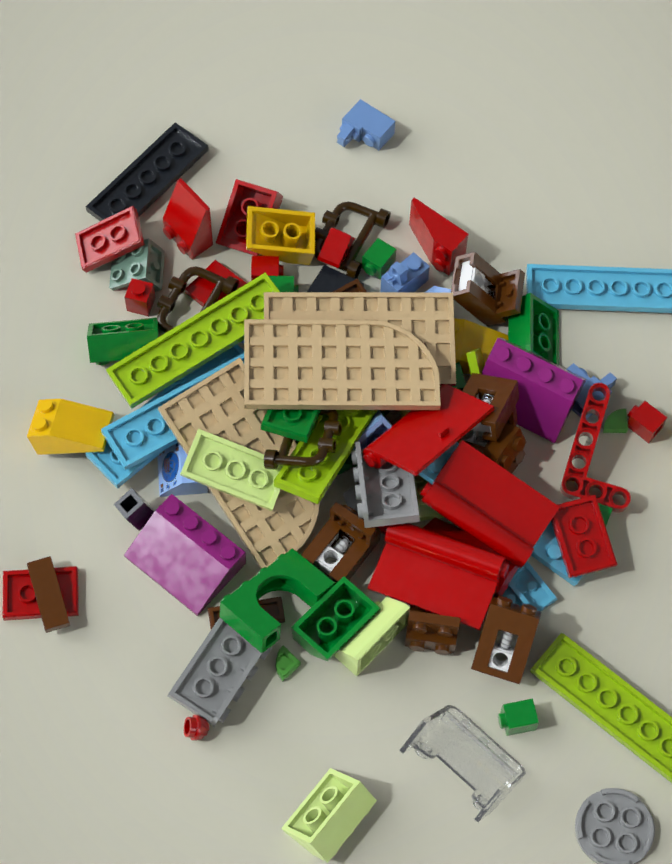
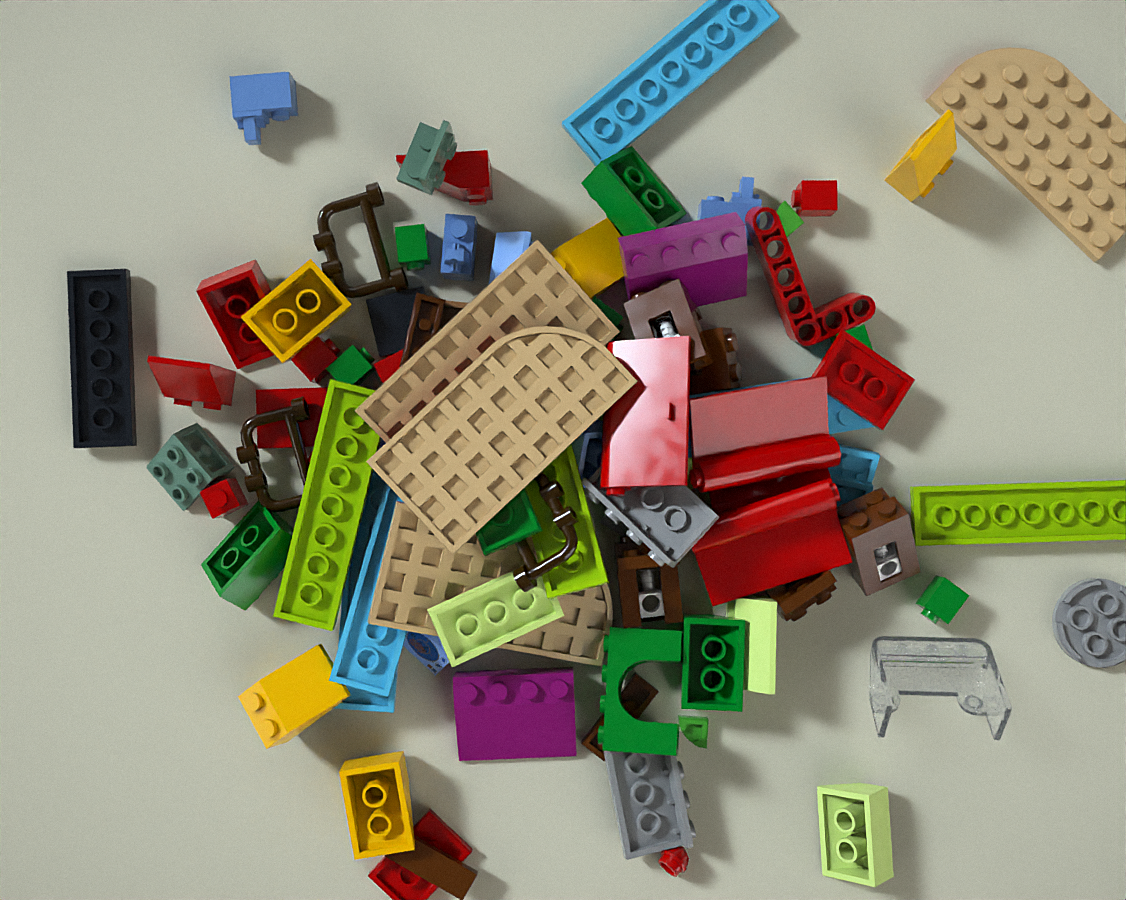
camera: 40 degrees left, 25 degrees up
(54, 528) = (378, 804): none -> yellow slope
(109, 239) = (134, 465): tile -> none
(134, 509) = (431, 717): black brick -> none
(336, 247) = (362, 273): red slope -> none
(432, 208) = (427, 156): none -> sand green bracket
(475, 361) = (613, 285): lime tile -> none
(485, 290) = (556, 194): reddish brown brick -> none

